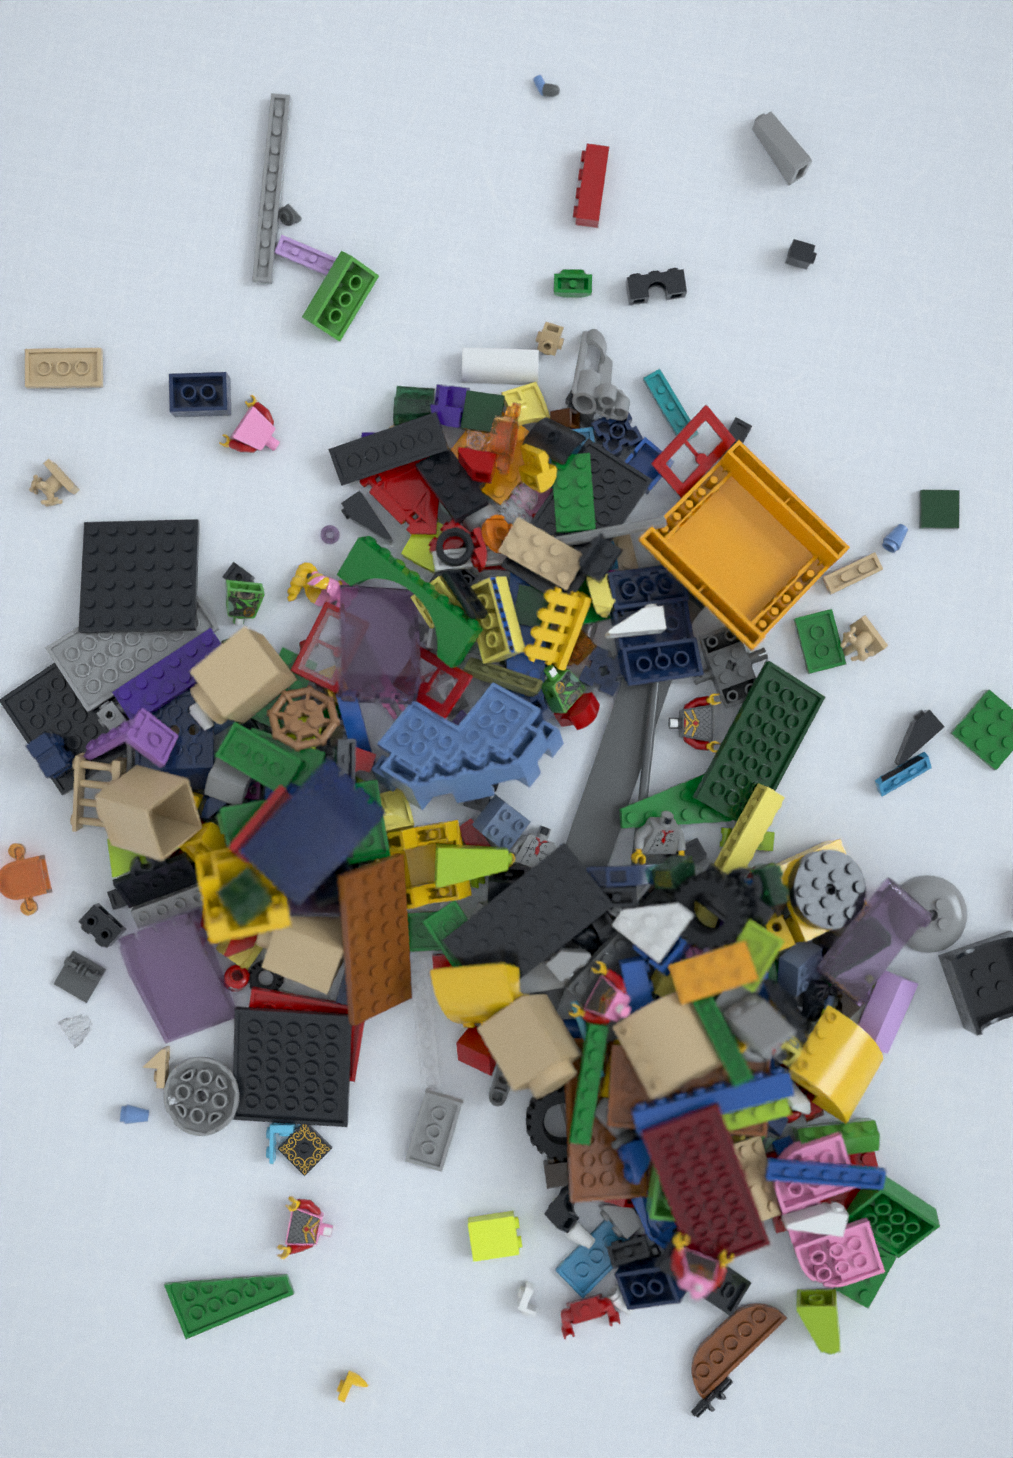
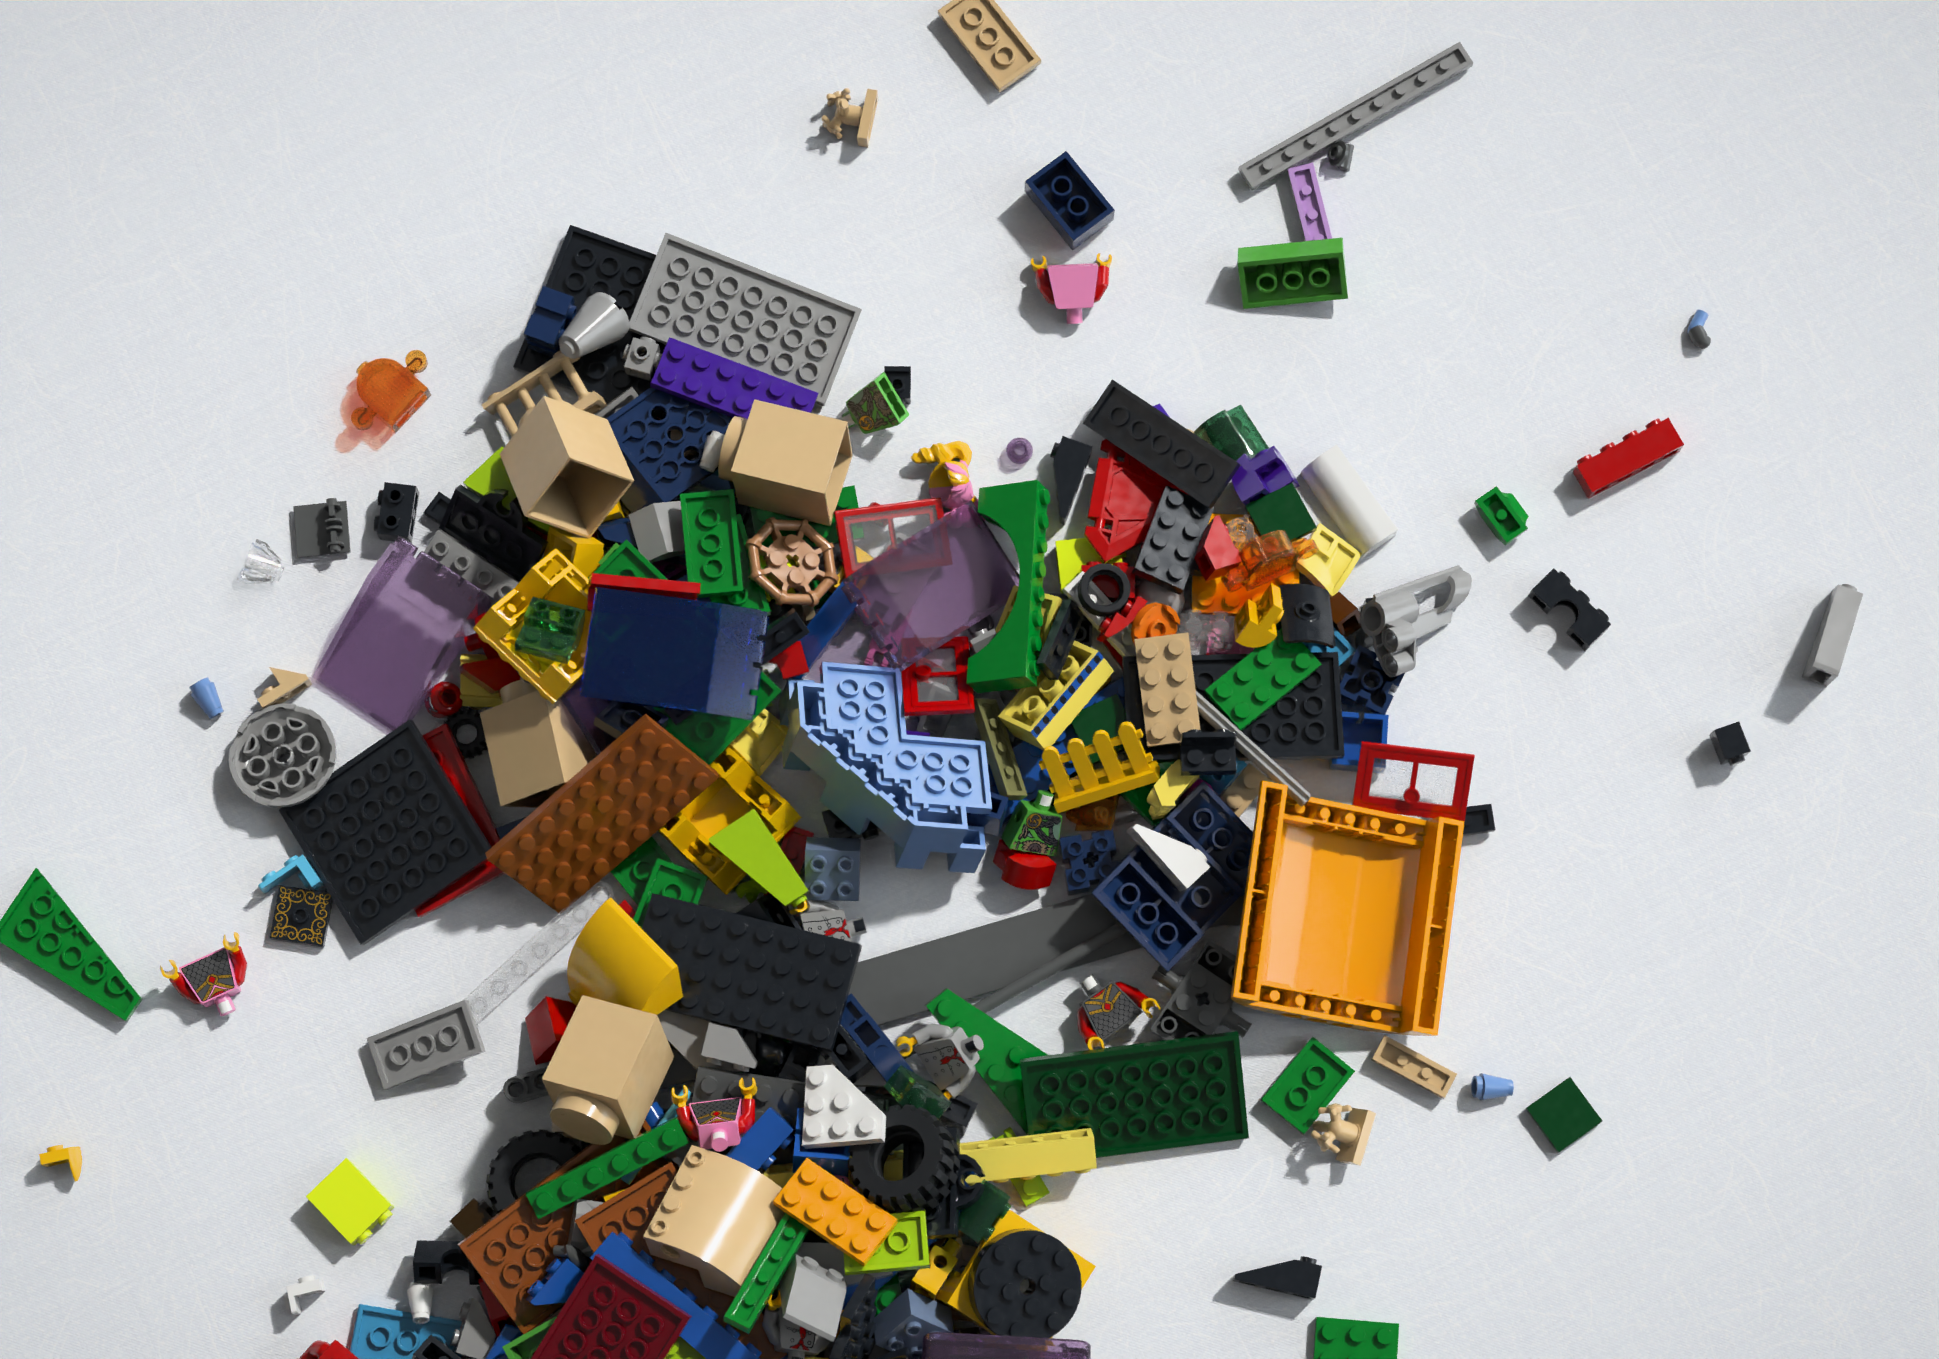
camera: 50 degrees right, 10 degrees down
(72, 732) = (594, 326): none -> light grey cone
(139, 576) = (819, 277): black plate -> none
(142, 733) = (649, 399): medium lavender bracket -> none
(550, 339) = (1420, 534): tan brick -> none
(667, 401) = (1452, 711): teal plate -> none
(903, 774) = (1226, 1293): dark azure plate -> none

